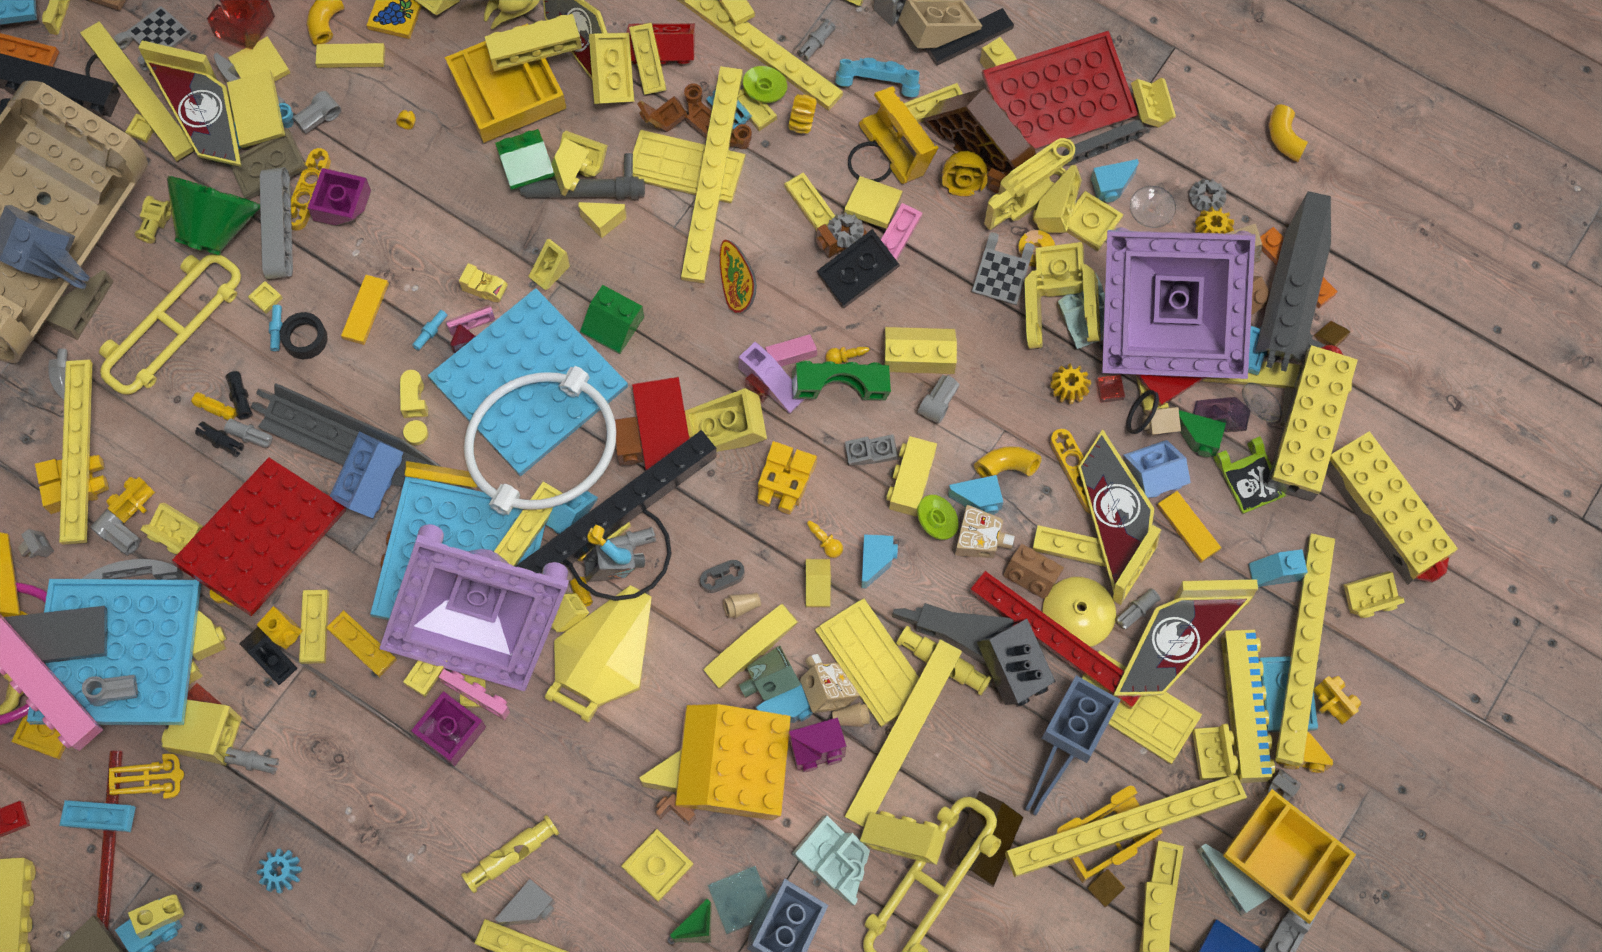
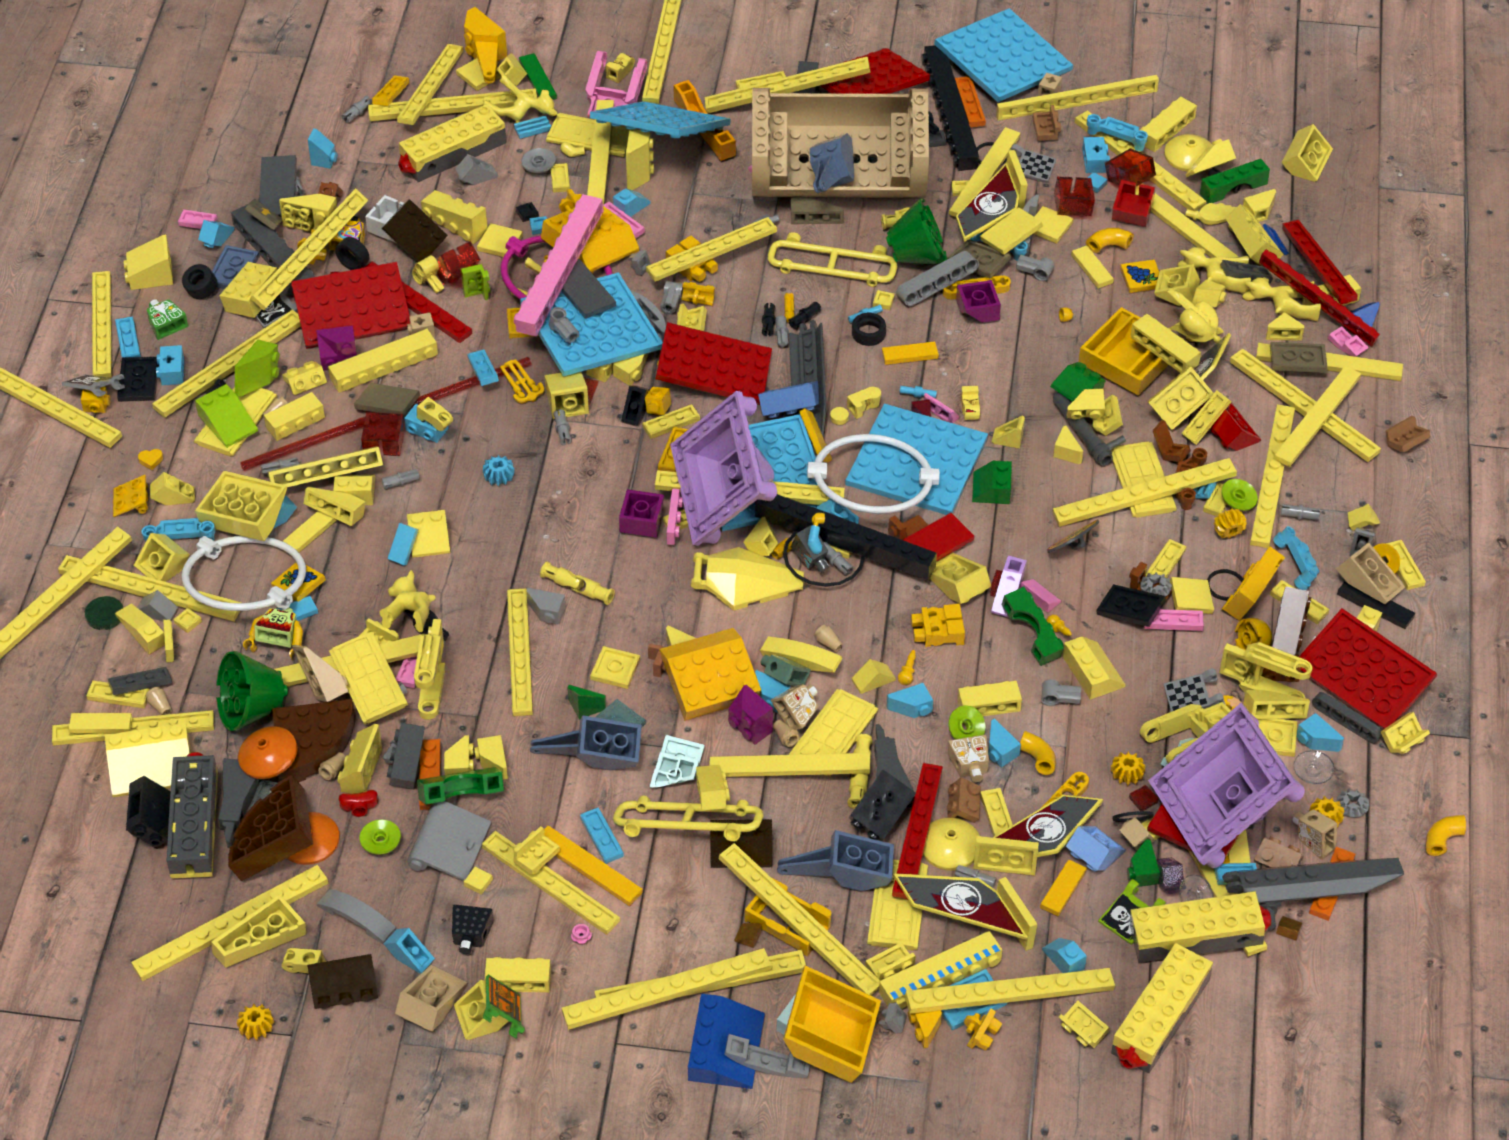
camera: 65 degrees right, 20 degrees down
(719, 571) = (843, 621): dark grey beam -> none
(871, 451) = (993, 668): light grey slope -> none

